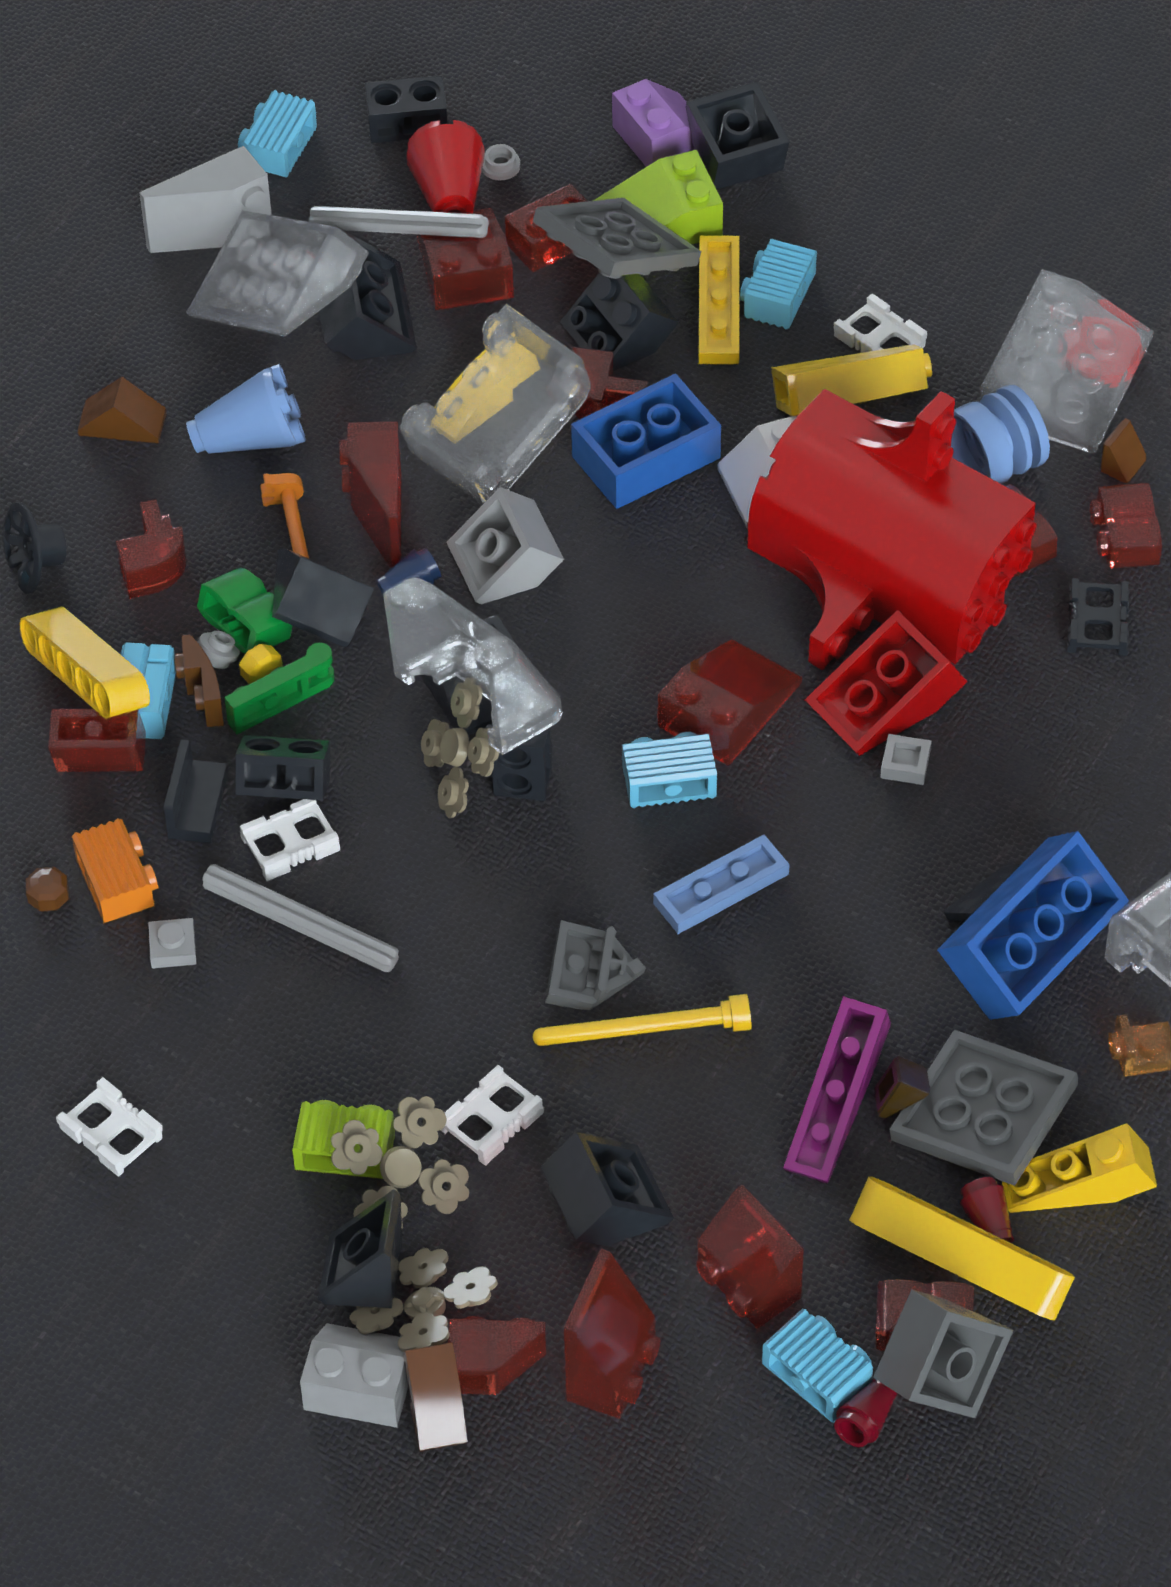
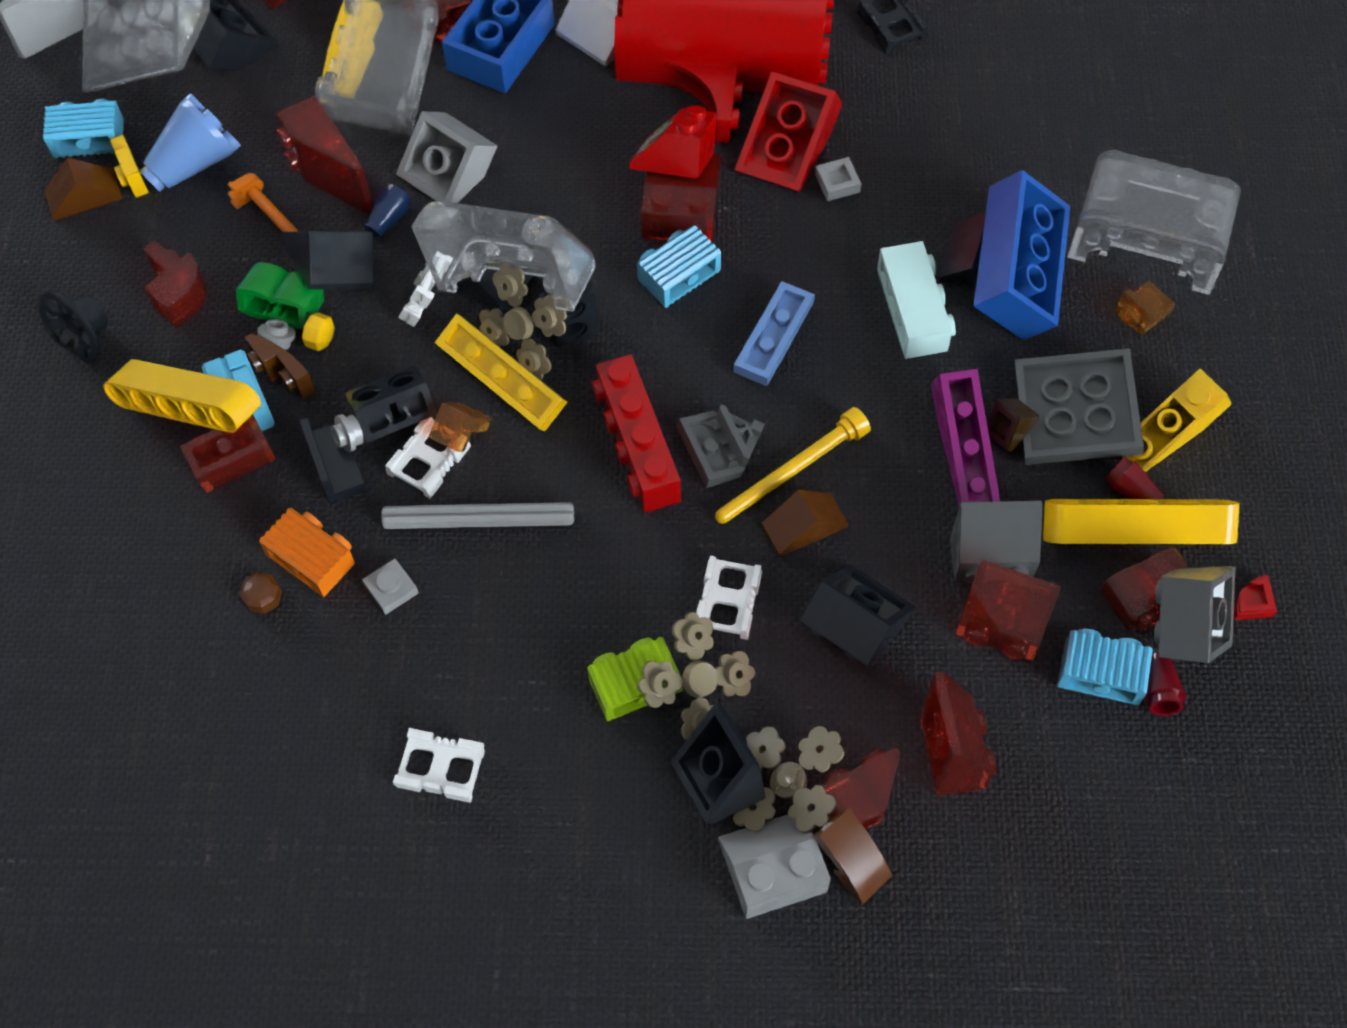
camera: 30 degrees left, 10 degrees up
(161, 353) = (82, 128): none -> medium azure brick
(179, 412) = (128, 170): none -> yellow plate
(220, 774) = (347, 432): none -> light grey plate
(280, 689) = (345, 343): green plate -> none
(335, 816) = (456, 423): none -> clear orange bracket
(373, 677) = (420, 297): none -> white piece
(413, 790) = (501, 372): none -> yellow plate
(507, 913) = (638, 434): none -> red brick
(620, 1079) = (803, 520): none -> reddish brown slope
(753, 646) = (679, 145): none -> red slope
(796, 1185) = (998, 533): none -> dark grey slope
(894, 920) = (915, 299): none -> light aqua brick
(1031, 1388) = (1255, 600): none -> red tile

